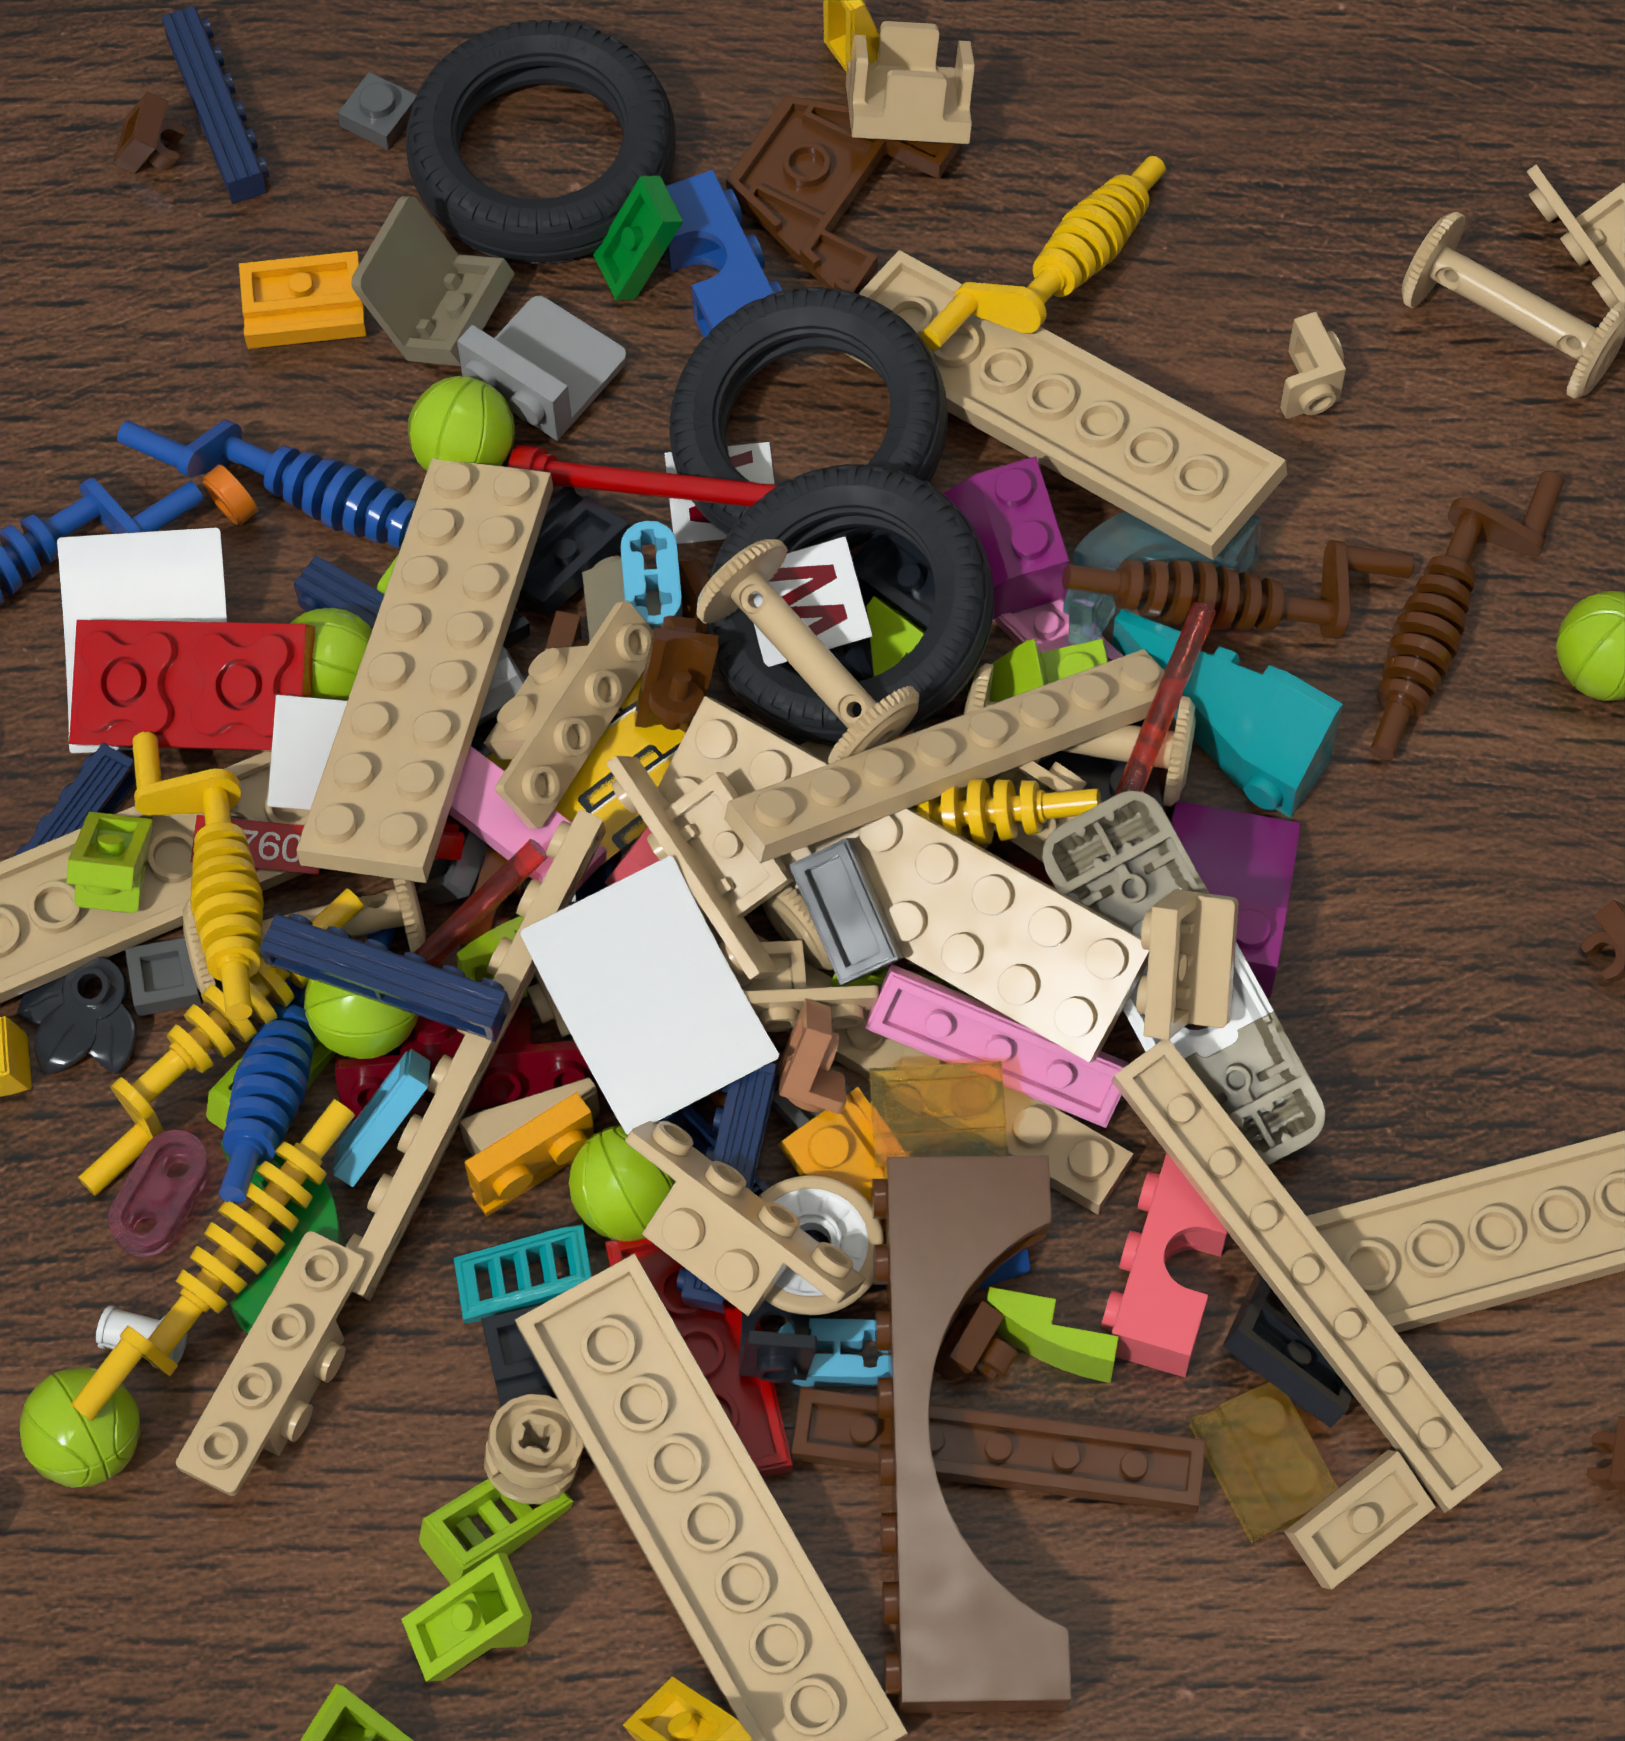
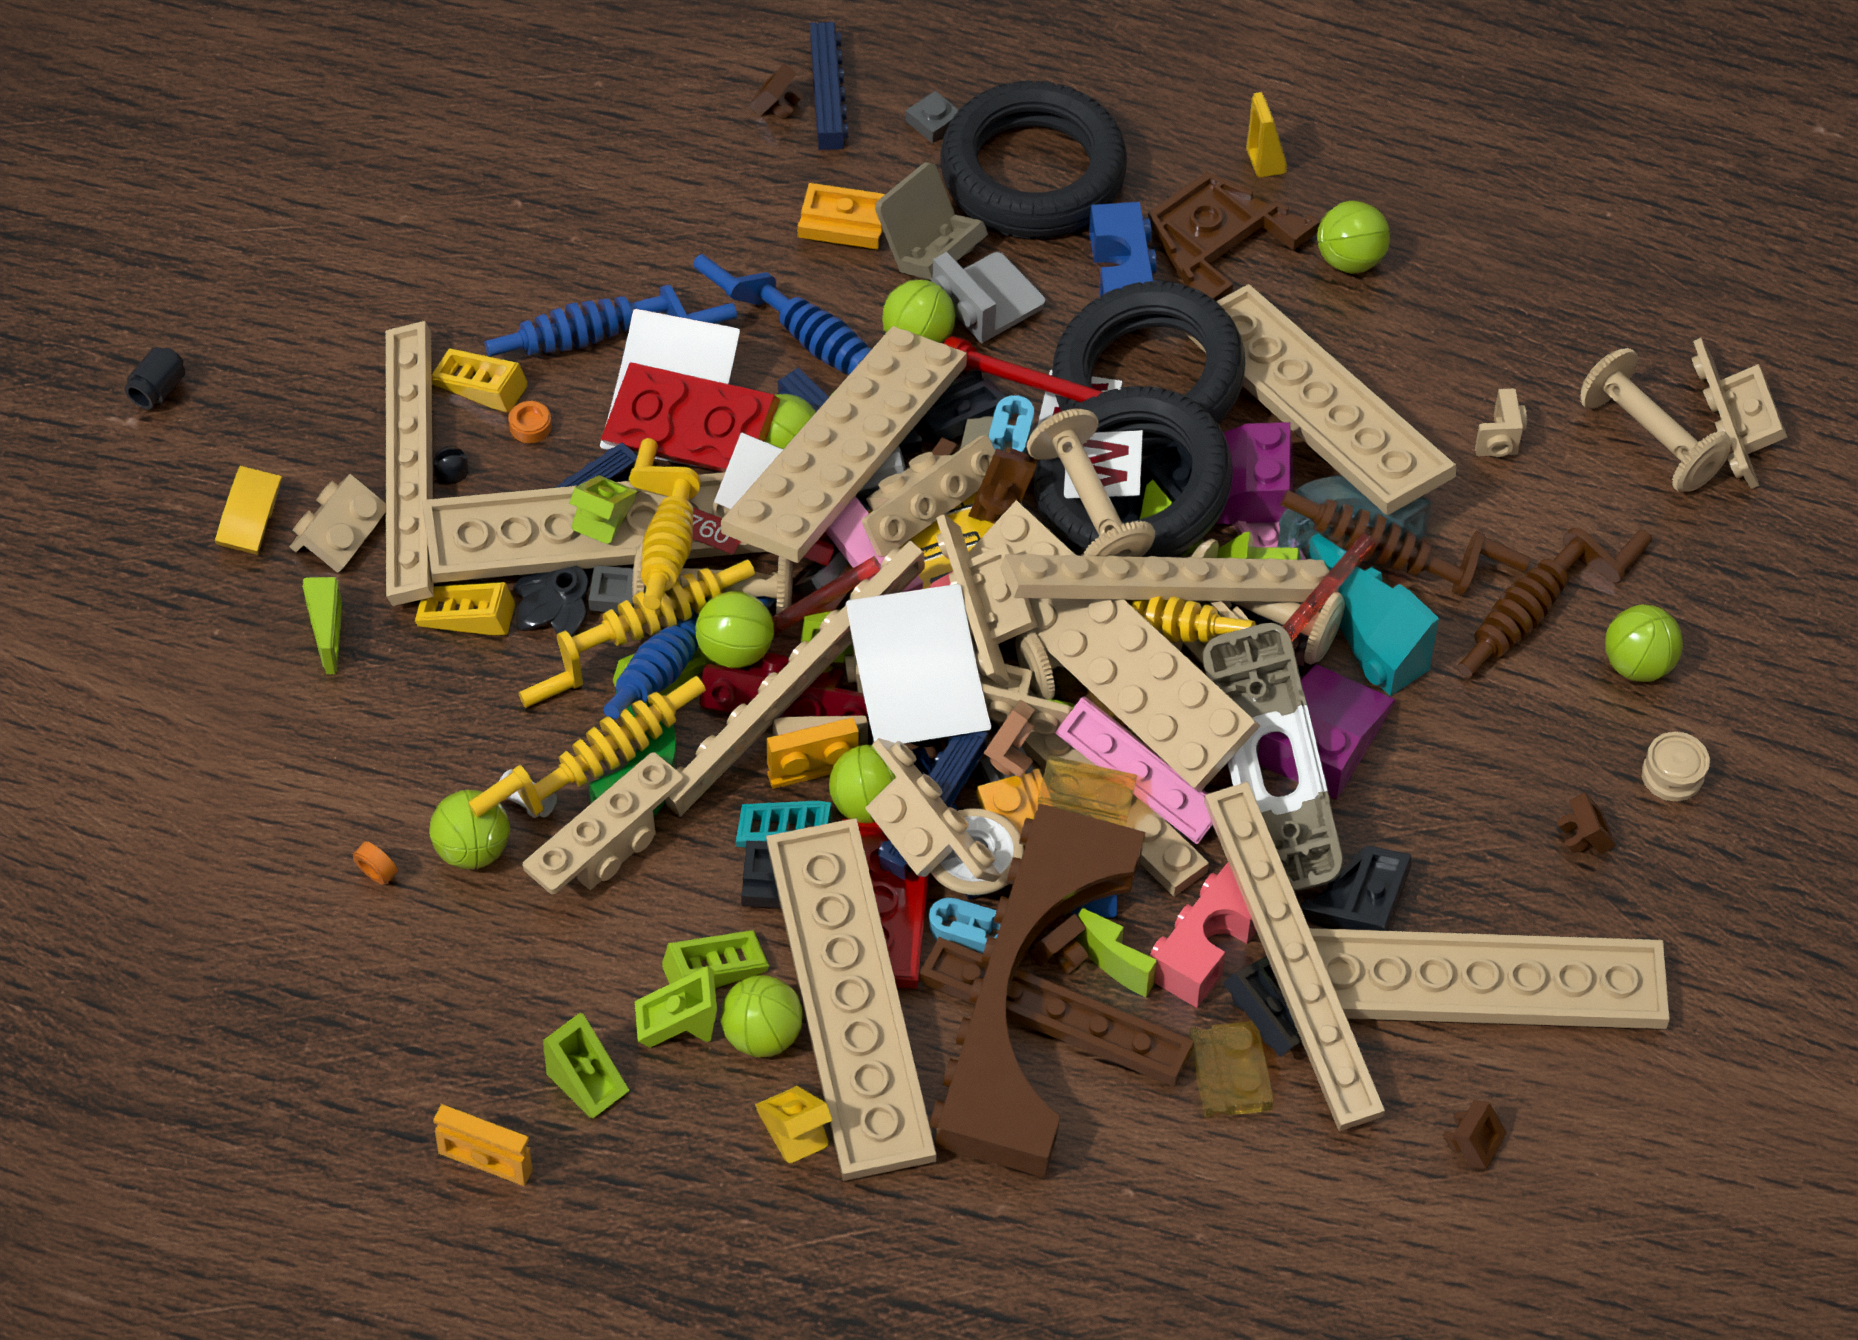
camera: 15 degrees right, 10 degrees down
(156, 1195) = (563, 715): clear pink plate -> none
(229, 495) = (754, 318): orange tile -> none
(381, 1117) = (723, 702): medium azure tile -> none
(385, 976) = (752, 609): dark blue piece -> none
(532, 1450) = (752, 923): tan wheel -> none
(593, 1594) = (761, 1016): none -> lime piece
(638, 237) = (1075, 230): green plate -> none
(776, 1355) = (930, 904): black bracket -> none
(846, 911) = (1064, 654): tile -> none
(906, 91) = (1290, 185): tan panel -> none
(1020, 141) = (1353, 237): none -> lime piece
(1078, 249) = (1368, 311): yellow piece -> none
(1188, 962) = (1276, 739): tan bracket -> none
(1360, 1519) = (1279, 1116): tan plate -> none
(1362, 1138) = (1363, 892): none -> black wing

